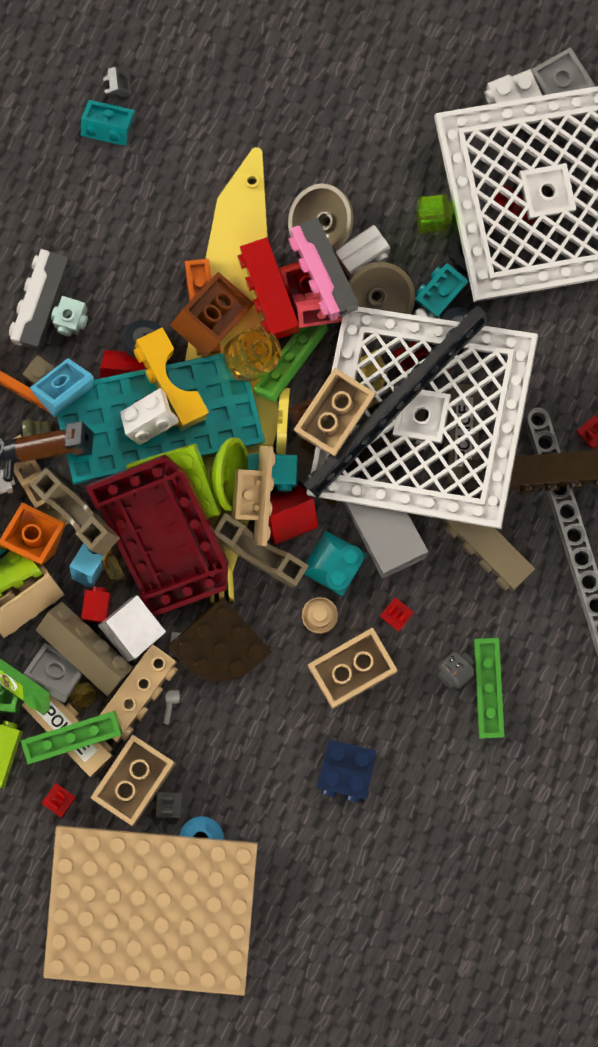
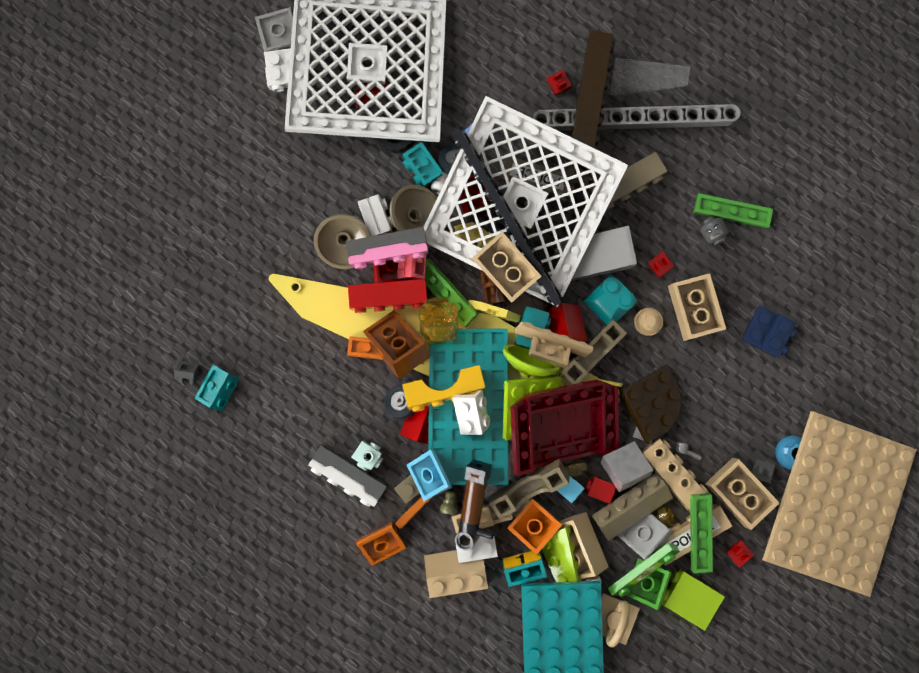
camera: 80 degrees left, 5 degrees up
(433, 213) = (361, 153): clear neon green brick -> none

